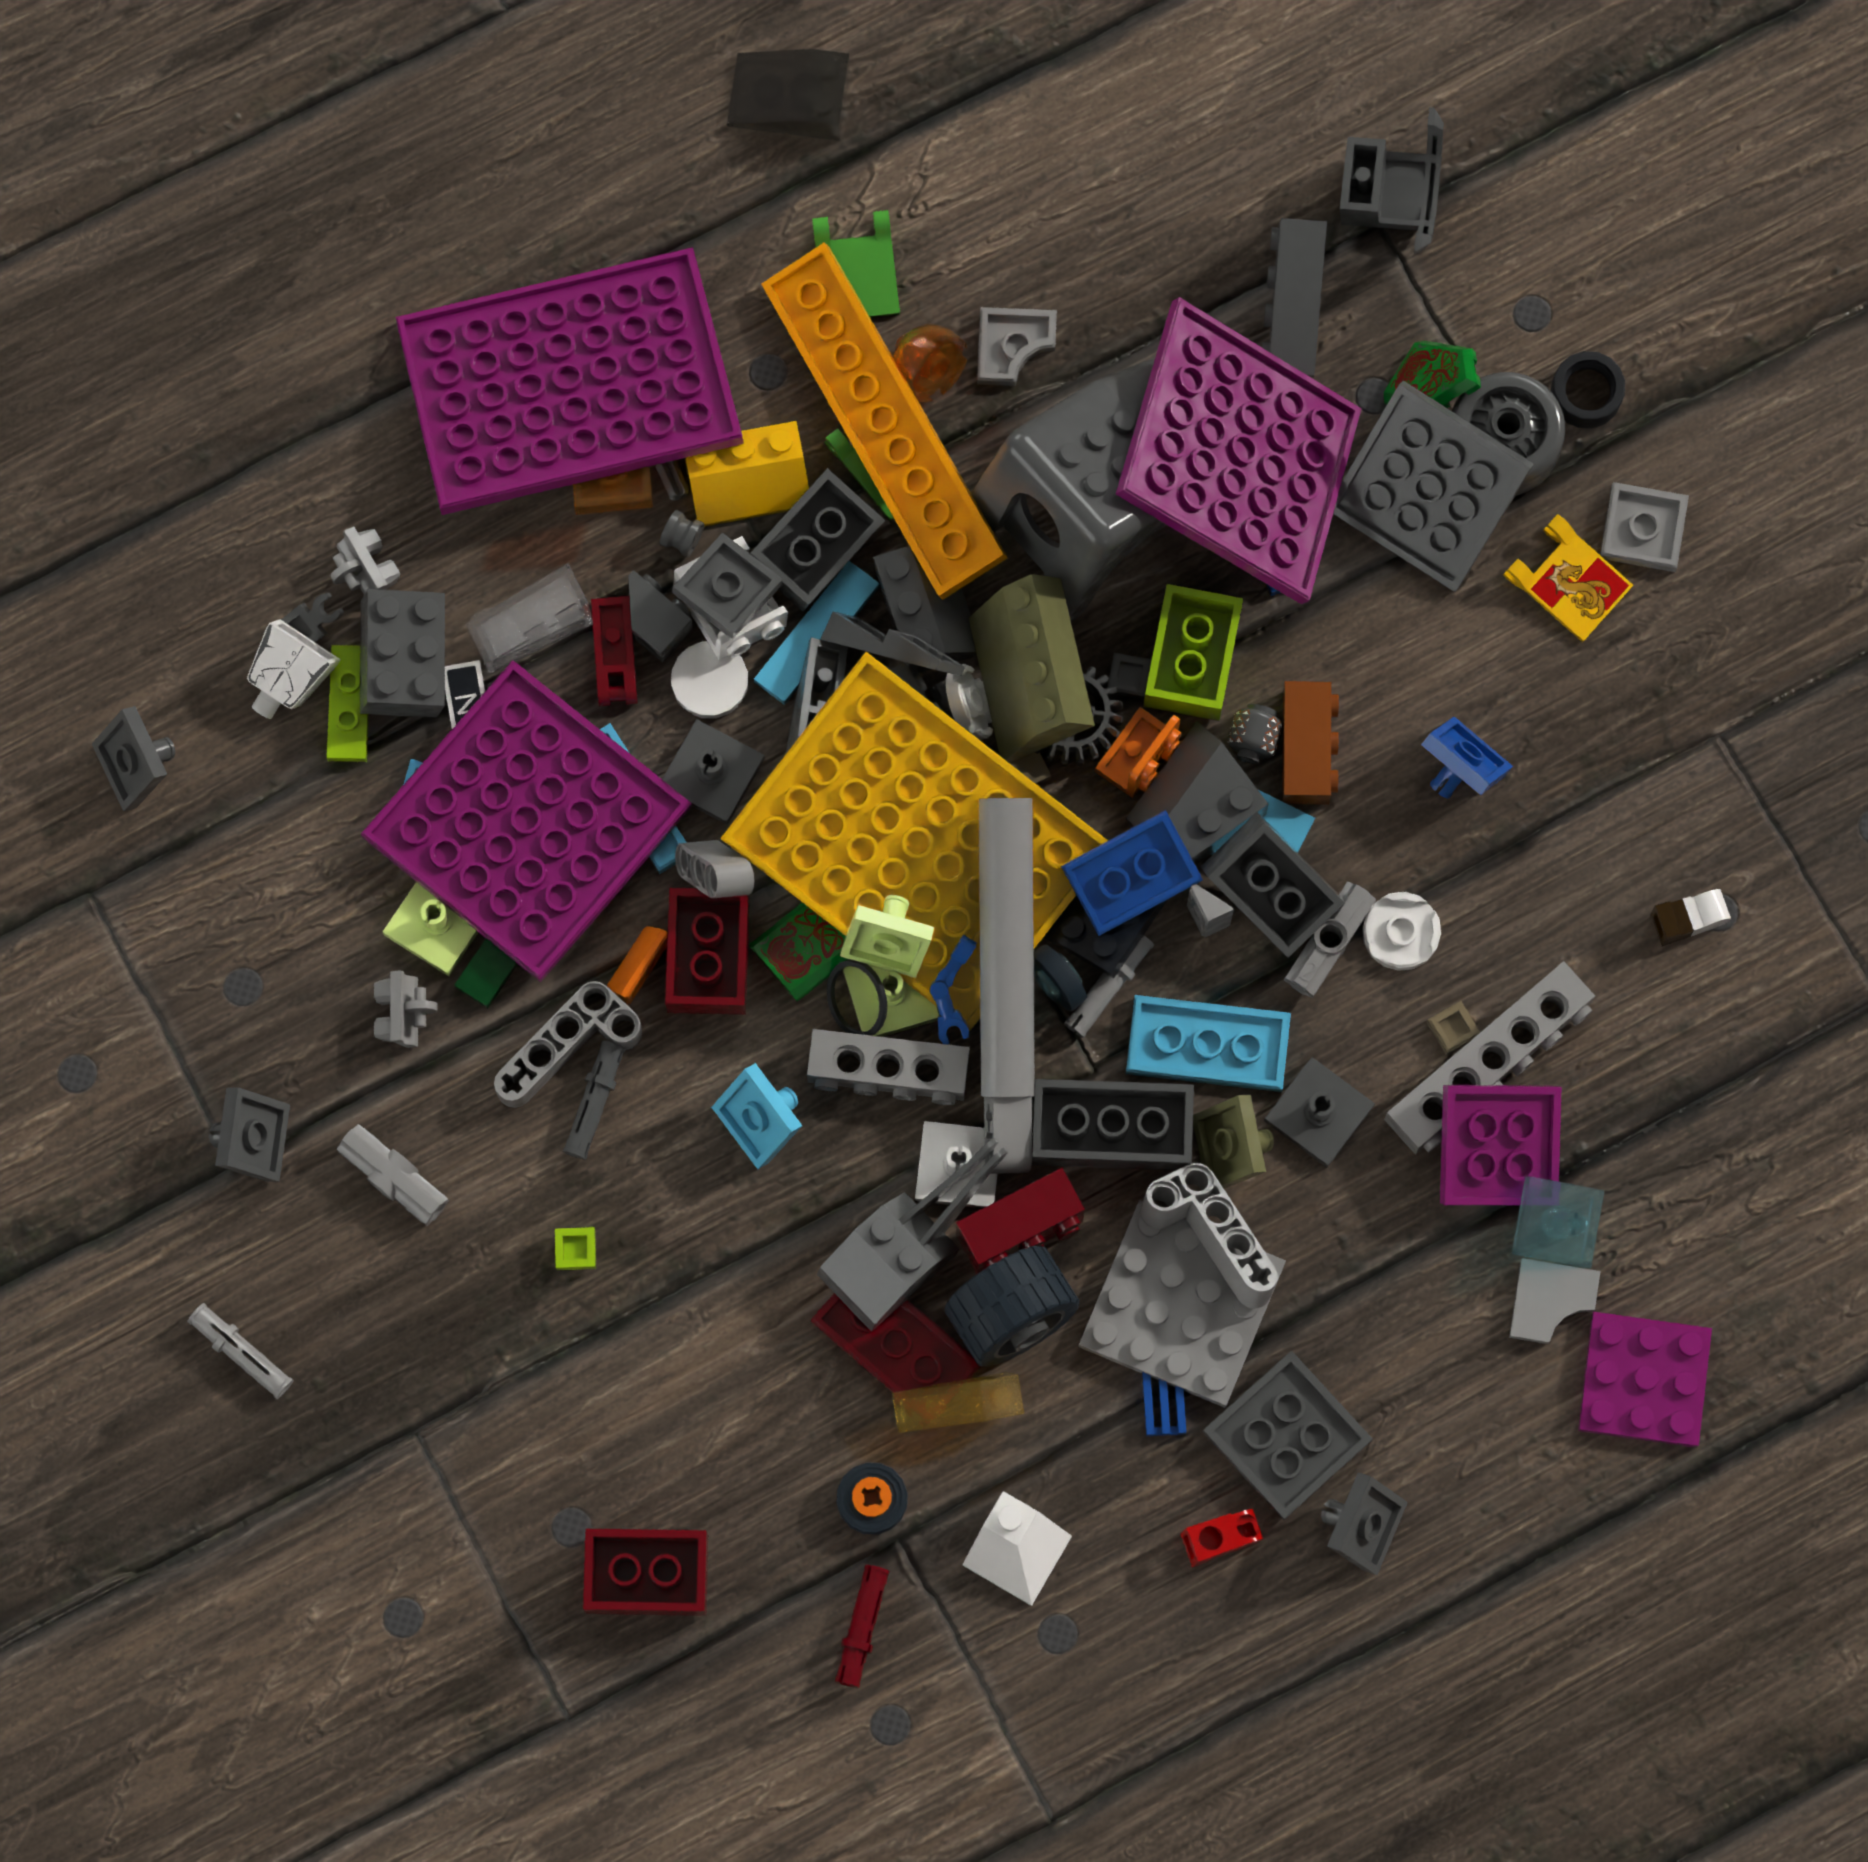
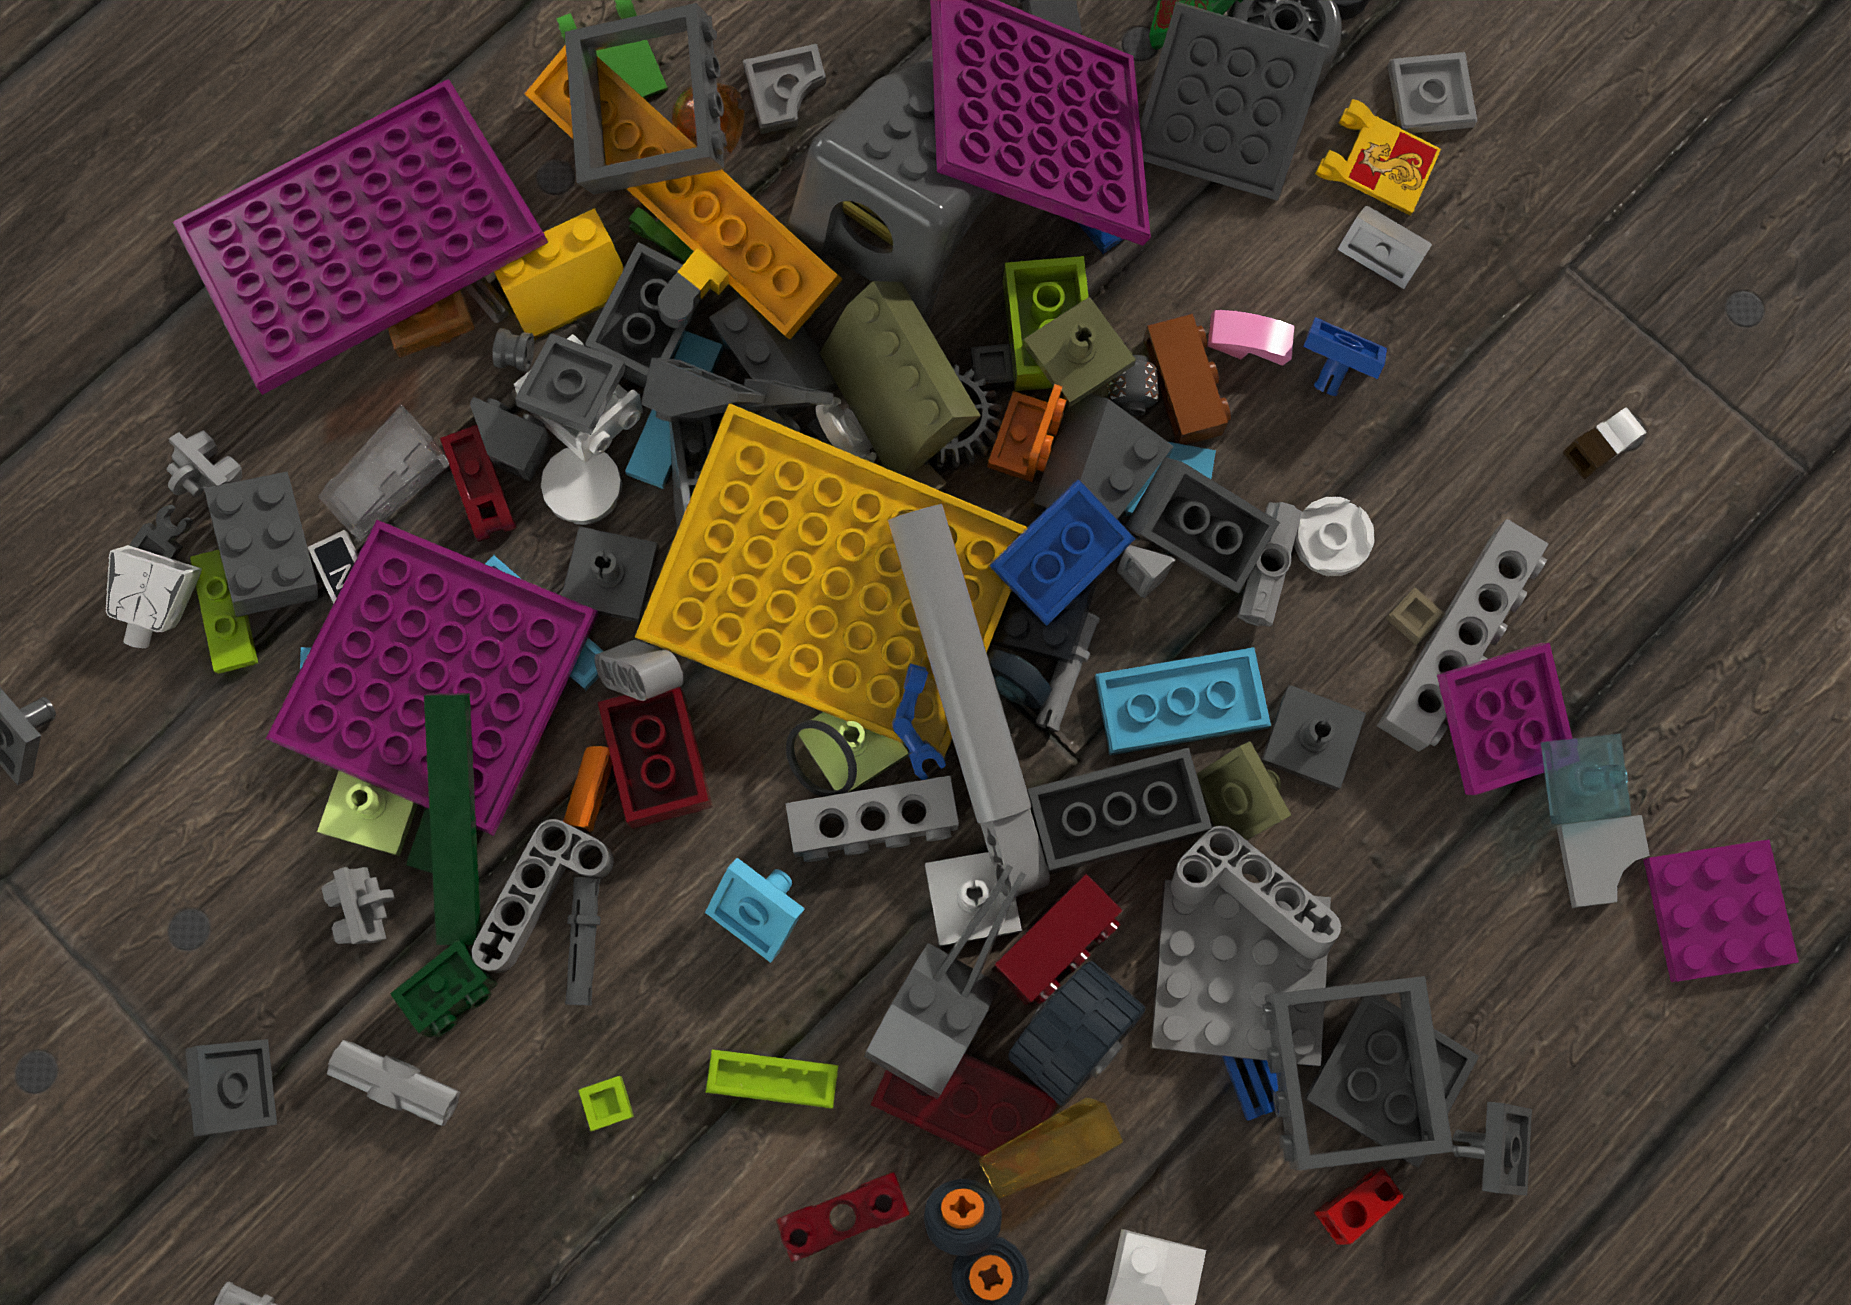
camera: 20 degrees left, 0 degrees up
(460, 1107) = (444, 991): none -> dark green bracket
(510, 955) = (452, 817): none -> dark green tile
(729, 1271) = (772, 1079): none -> lime plate
(788, 1396) = (811, 1227): none -> dark red piece
(800, 950) = (751, 726): green tile -> none
(816, 323) = (586, 107): none -> dark grey window
(832, 622) = (688, 391): none -> dark grey slope
(862, 525) = (688, 287): none -> leg
(863, 1438) = (947, 1219): none -> black wheel
(887, 938) = (836, 689): yellowish green tile -> none
(1182, 1420) = (1423, 1062): none -> dark grey window
(1208, 689) = (1079, 351): none -> olive tile
(1383, 715) = (1247, 333): none -> bright pink slope
(1544, 665) = (1384, 246): none -> light grey panel

